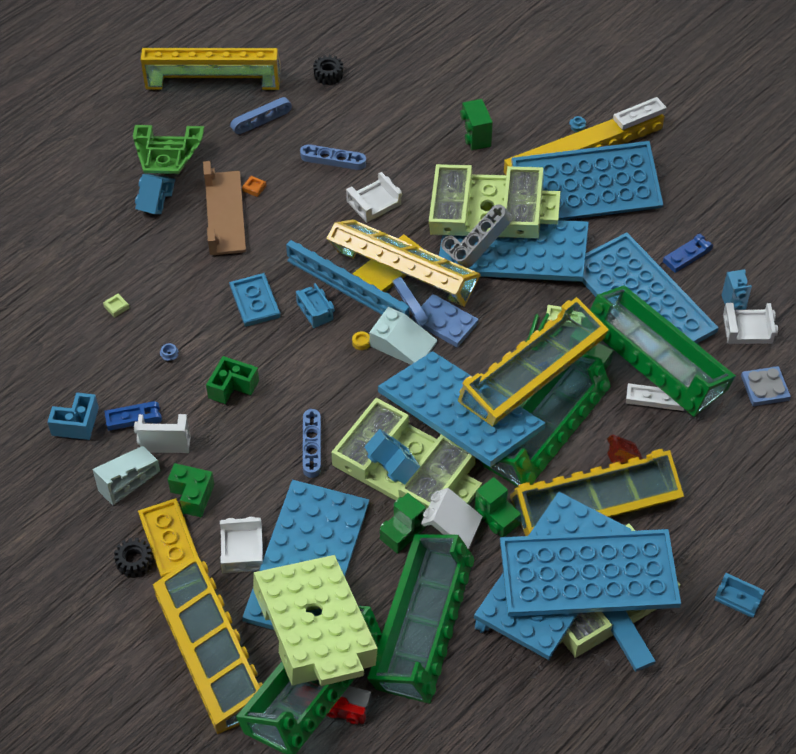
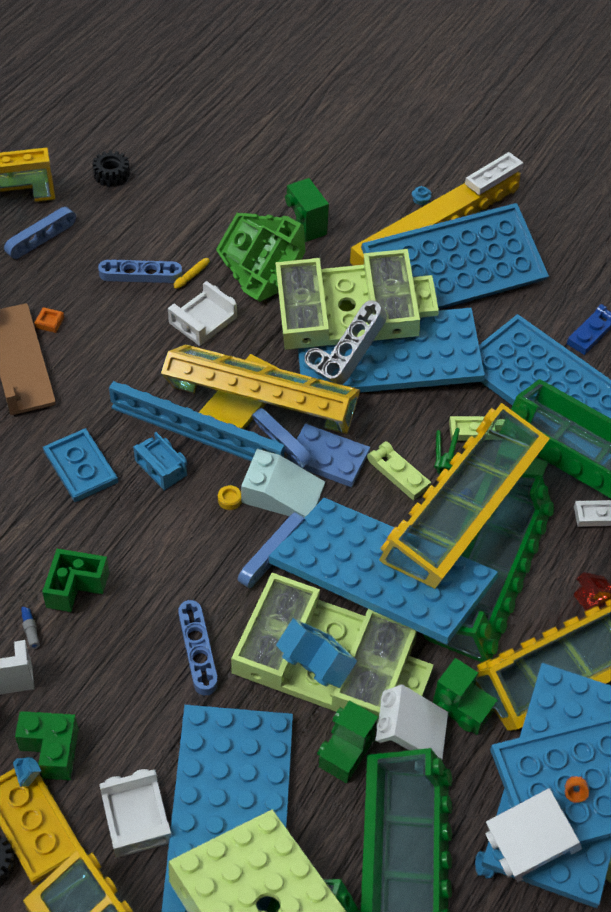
camera: 15 degrees left, 0 degrees up
(171, 503) = (26, 770): none -> dark azure tile
(193, 410) = (30, 628): none -> light grey piece
(363, 169) = (181, 281): none -> yellow piece
(370, 391) = (260, 561): none -> medium blue beam
(426, 147) = (254, 247): none -> bright green wedge
(495, 338) = (399, 471): none -> yellowish green plate
(509, 598) = (531, 834): none -> white panel
(547, 574) = (575, 796): none -> orange hinge

